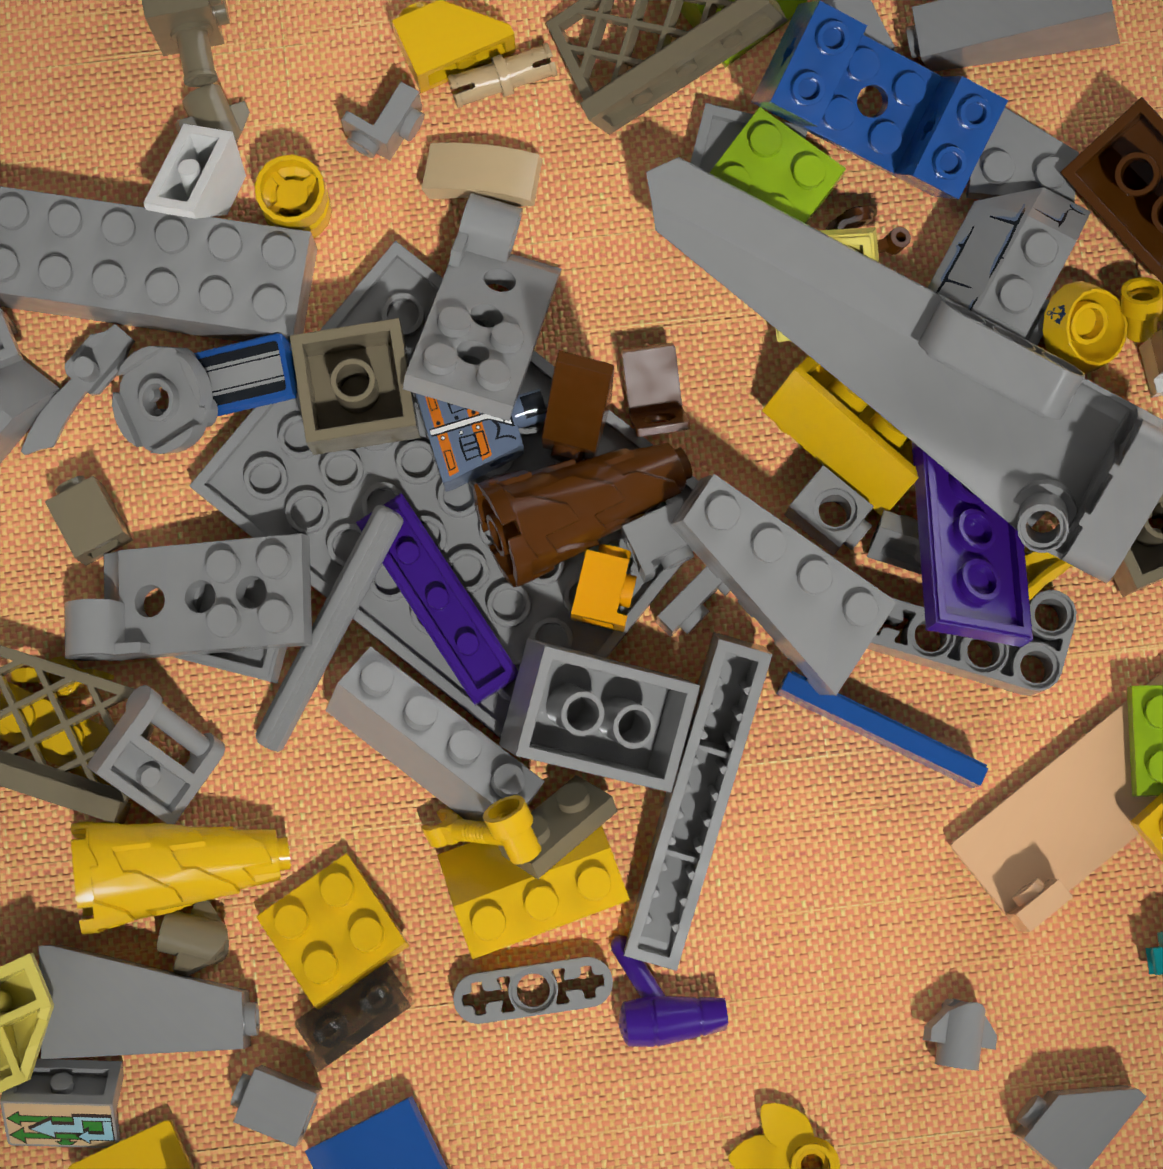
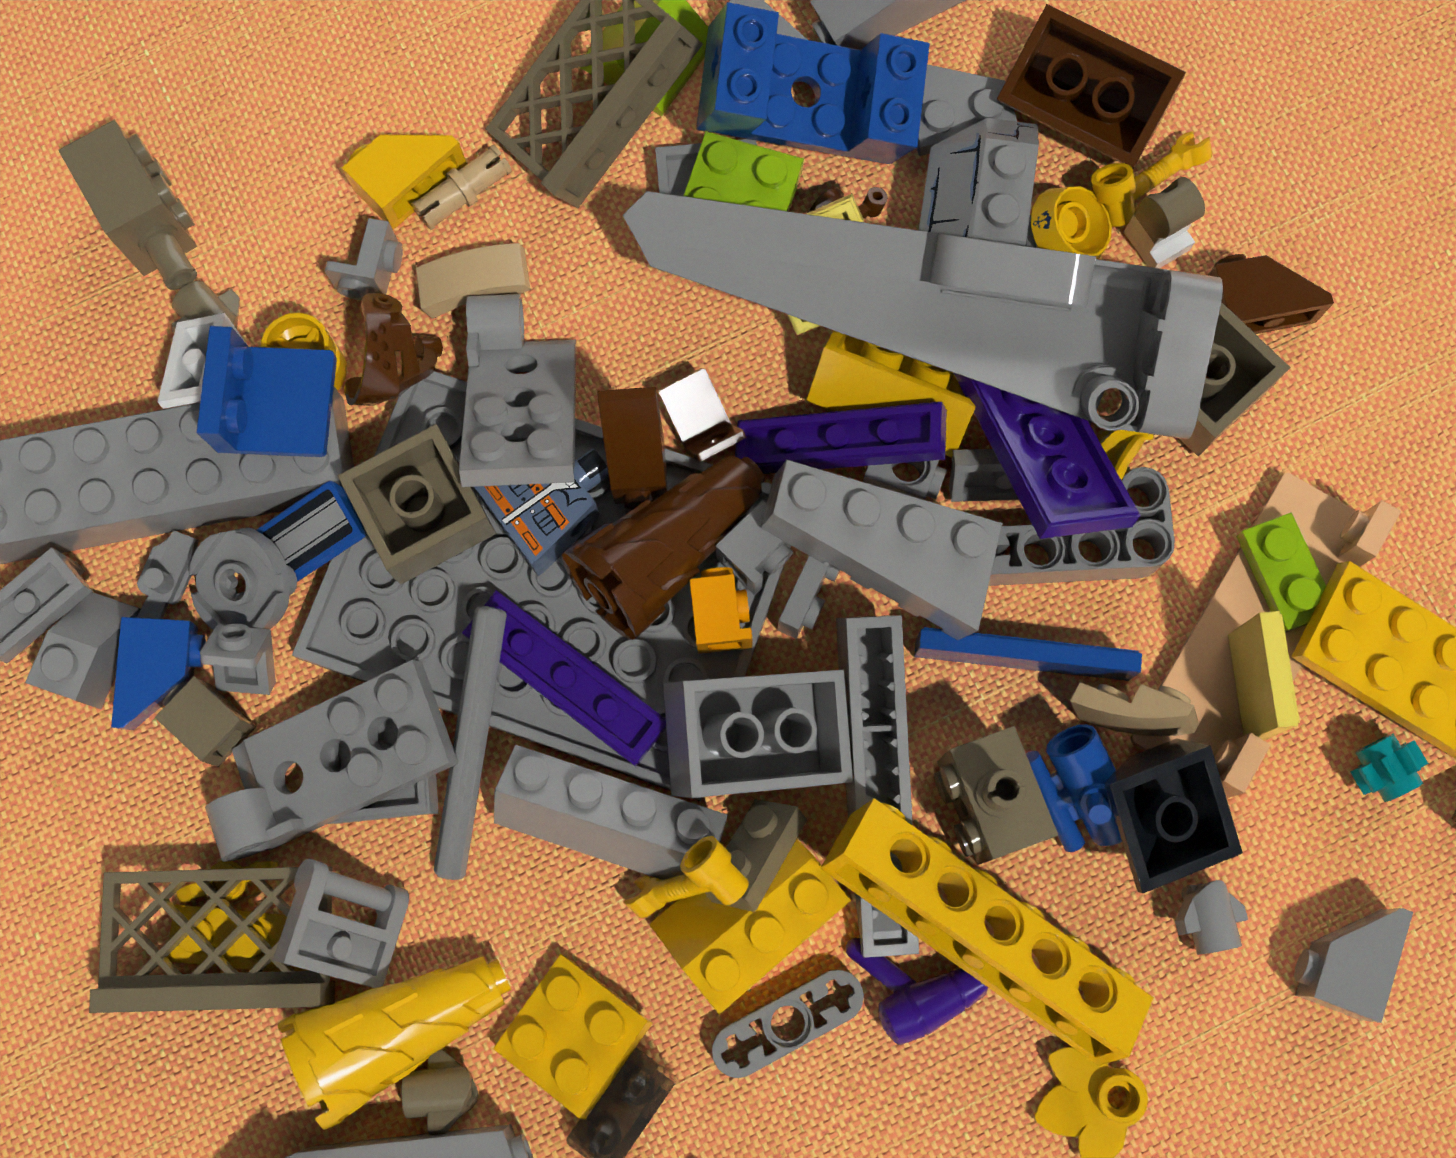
camera: 15 degrees left, 5 degrees down
(58, 448) = (150, 663): none -> blue slope
(140, 473) = (240, 659): none -> light grey bracket
(248, 236) = (265, 398): none -> blue bracket
(380, 211) = (385, 334): none -> reddish brown helmet
(652, 870) = (1114, 1006): none -> yellow brick
(782, 462) = (847, 437): none -> dark purple tile
(797, 852) = (994, 796): none -> dark tan brick
(883, 874) = (1077, 787): none -> blue pin
(955, 926) = (1172, 813): none -> black slope
(972, 826) = (1150, 712): none -> tan slope
(1091, 831) = (1263, 676): none -> light yellow tile

